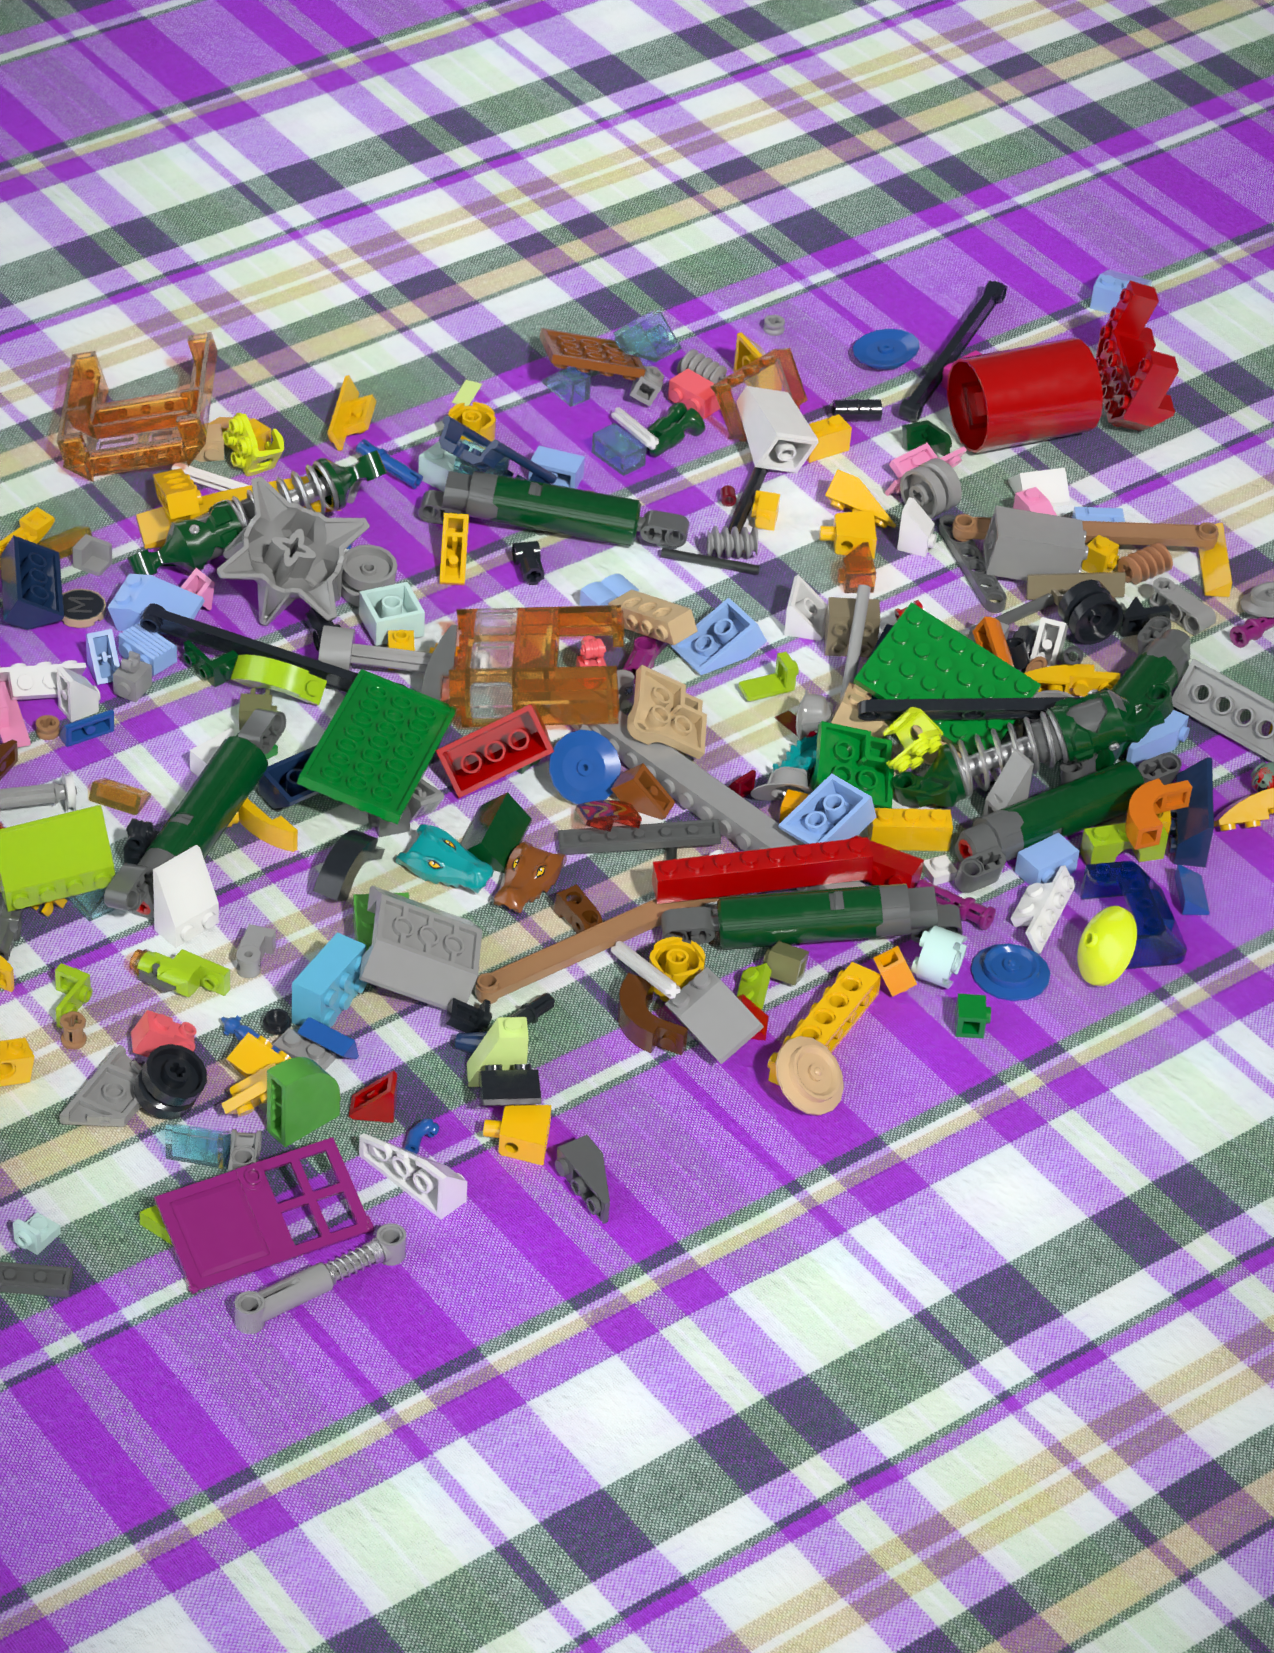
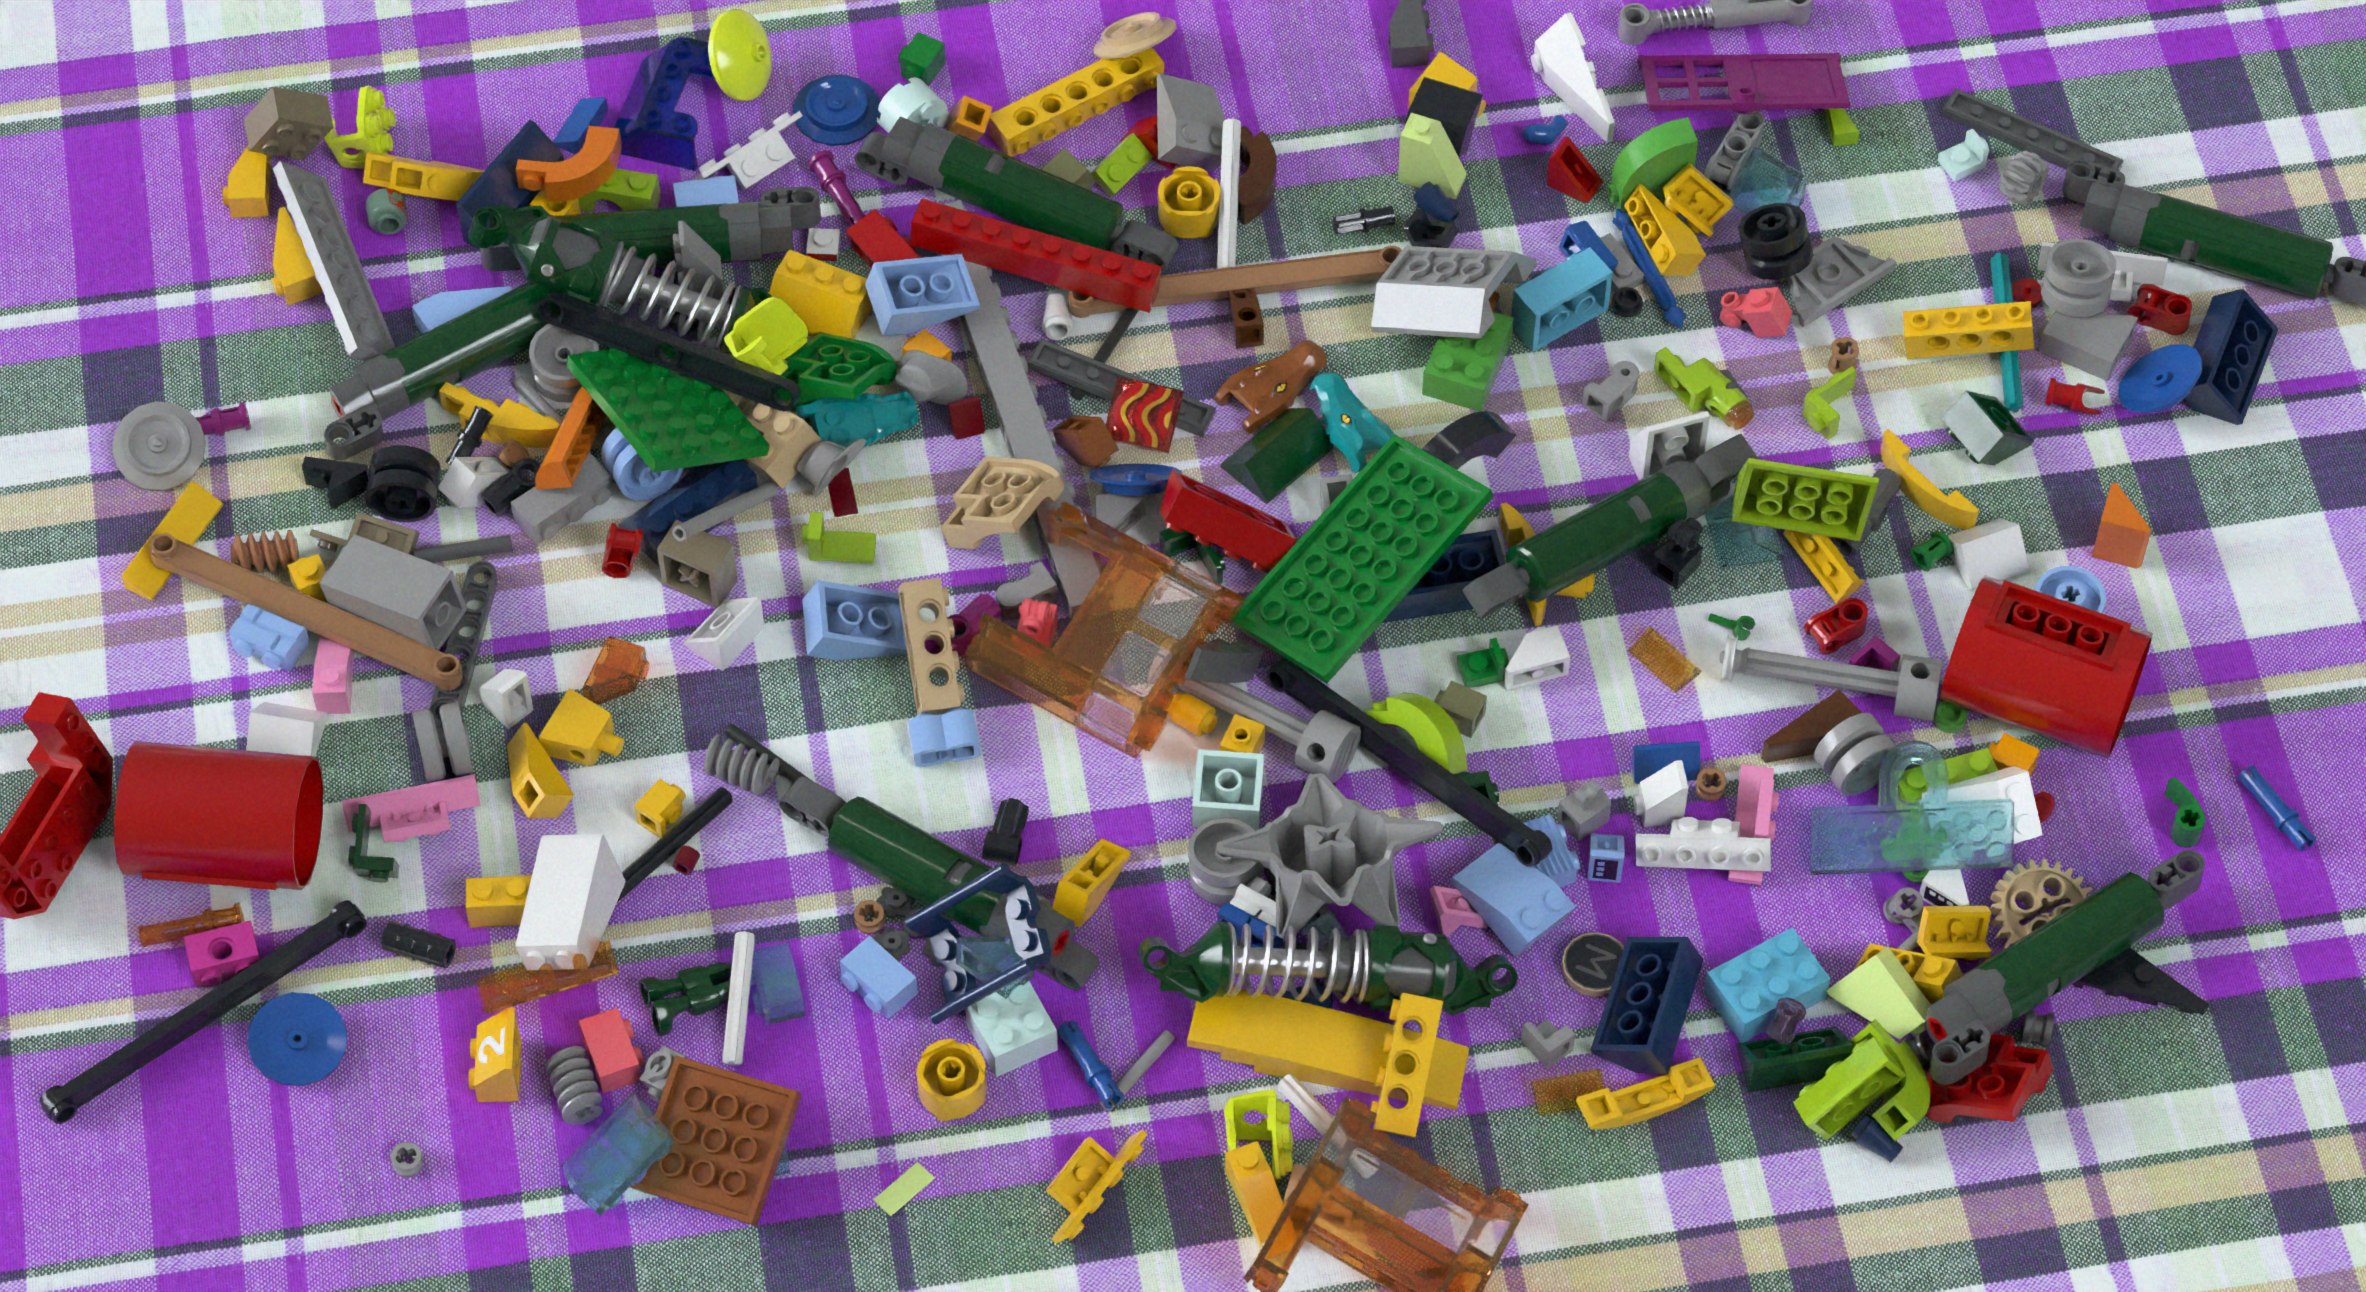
camera: 150 degrees left, 15 degrees up
(1184, 607) = (277, 481): light grey piece -> none

